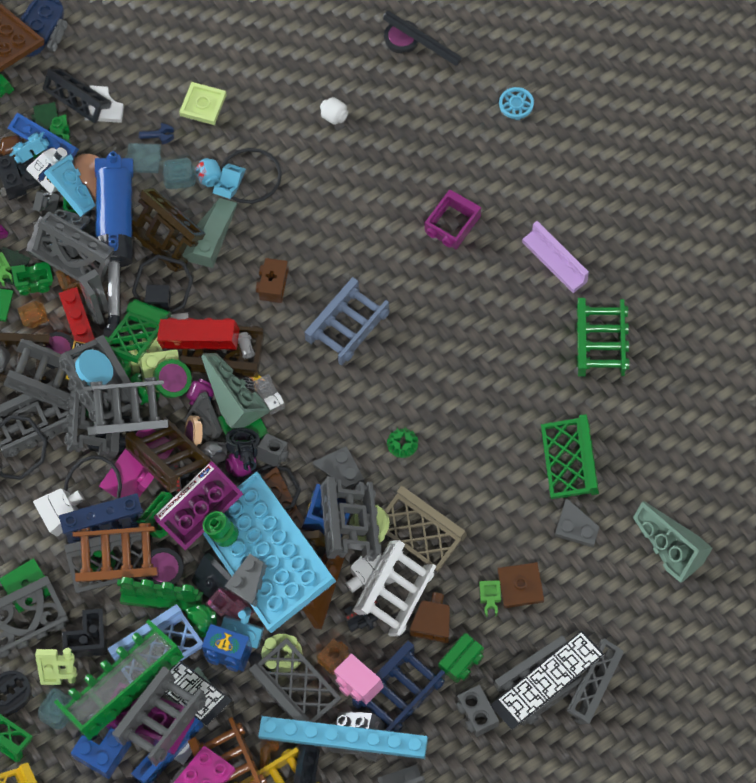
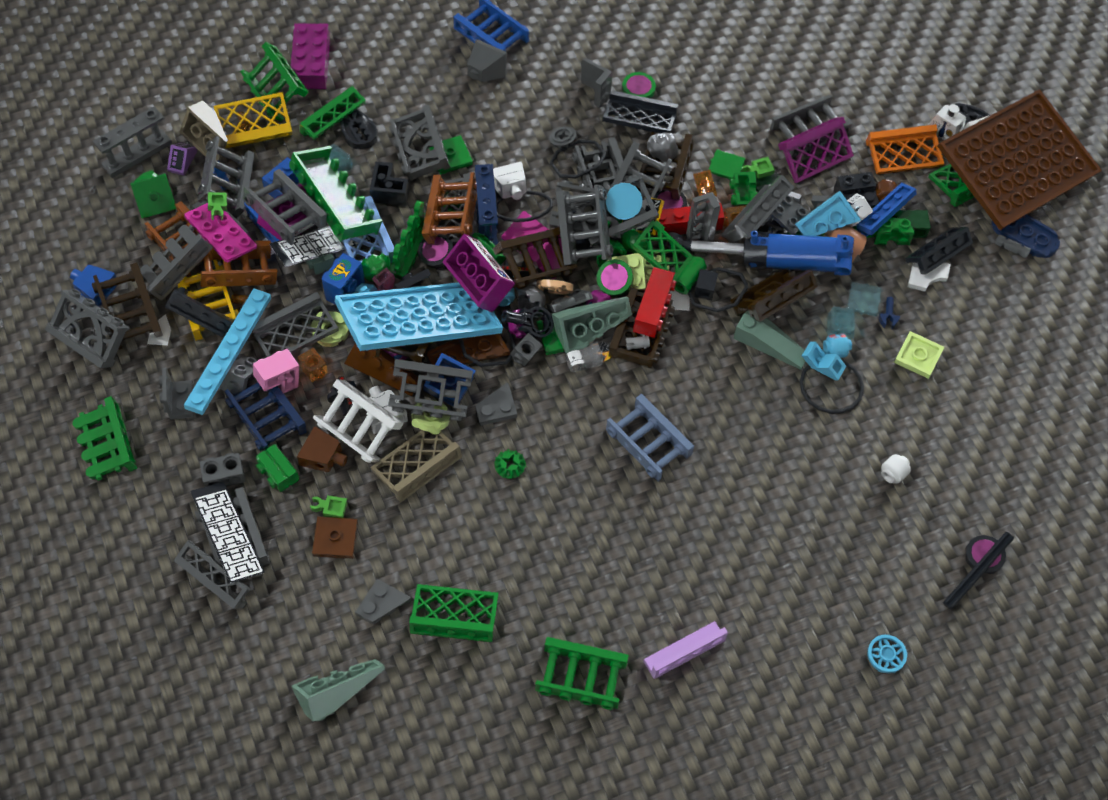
camera: 95 degrees right, 5 degrees down
(23, 151) = (876, 194): medium azure hinge -> none
(49, 666) = (366, 158): yellowish green plate -> none
(220, 529) = (449, 284): green wheel -> none
(248, 579) = (391, 293): dark grey wing -> none
(277, 272) = (706, 381): reddish brown brick -> none
(460, 204) = (771, 555): magenta window -> none

